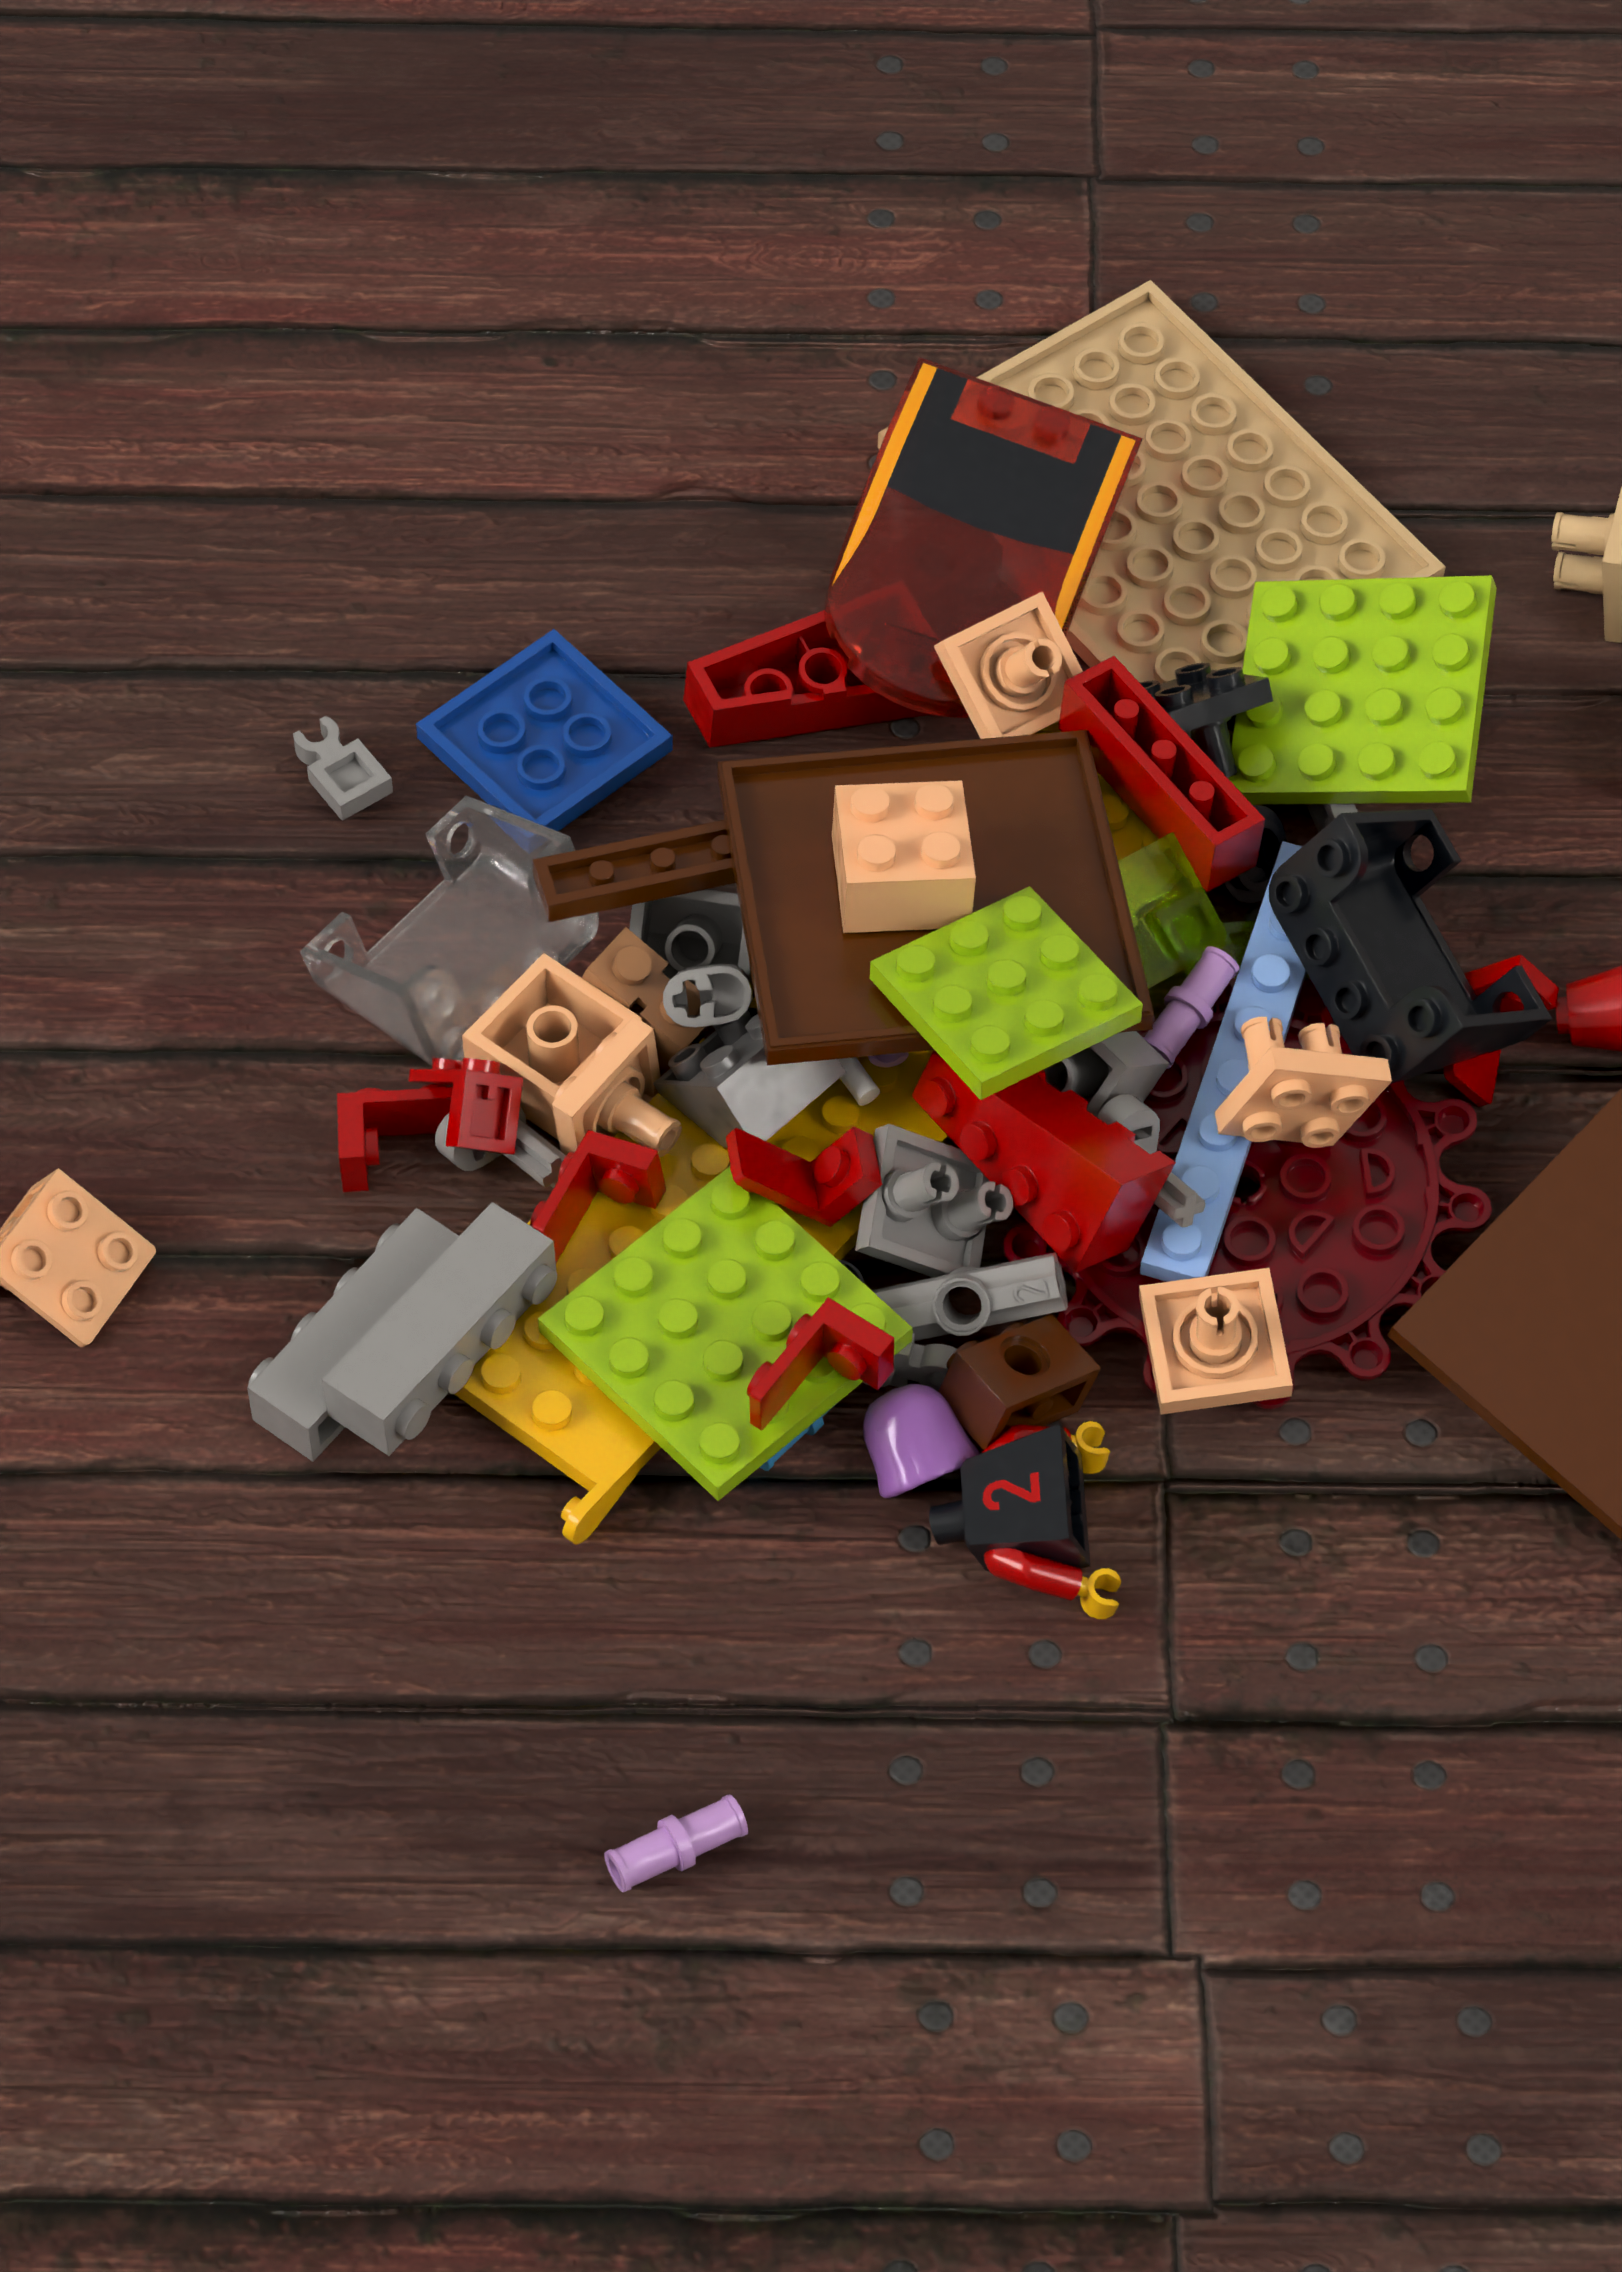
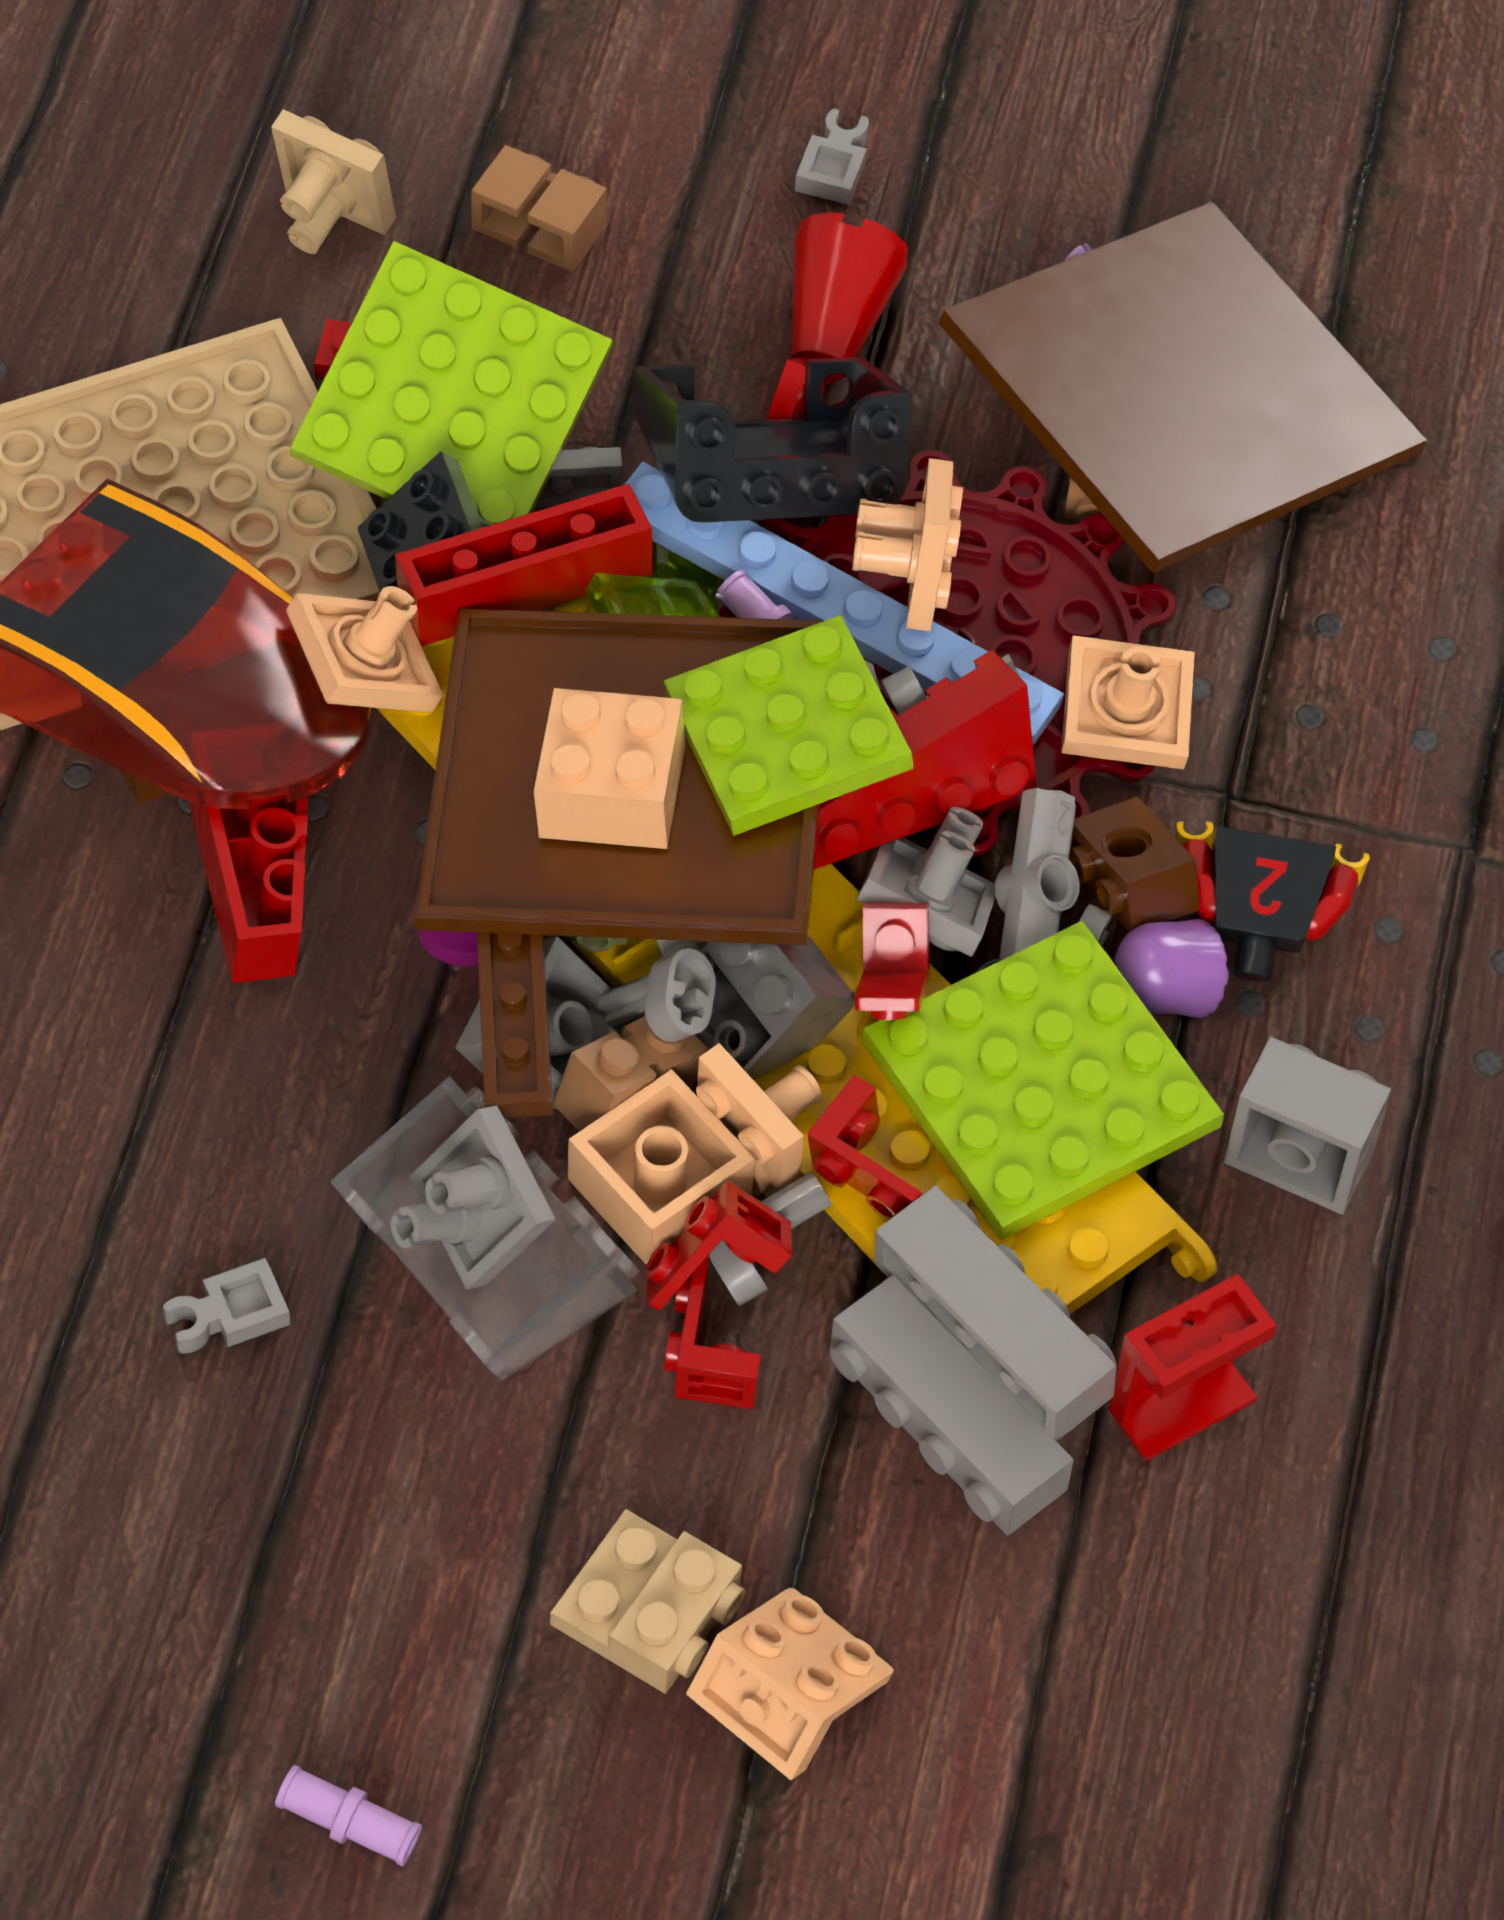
camera: 80 degrees left, 0 degrees up
(118, 1138) = (650, 1600): none -> tan plate
(418, 1501) = (1184, 1376): none -> red panel
(460, 892) = (475, 1200): none -> light grey plate
(545, 734) = (244, 1113): blue plate -> none
(741, 1577) = (1307, 1124): none -> light grey brick
(834, 1332) = (1112, 986): red bracket -> none

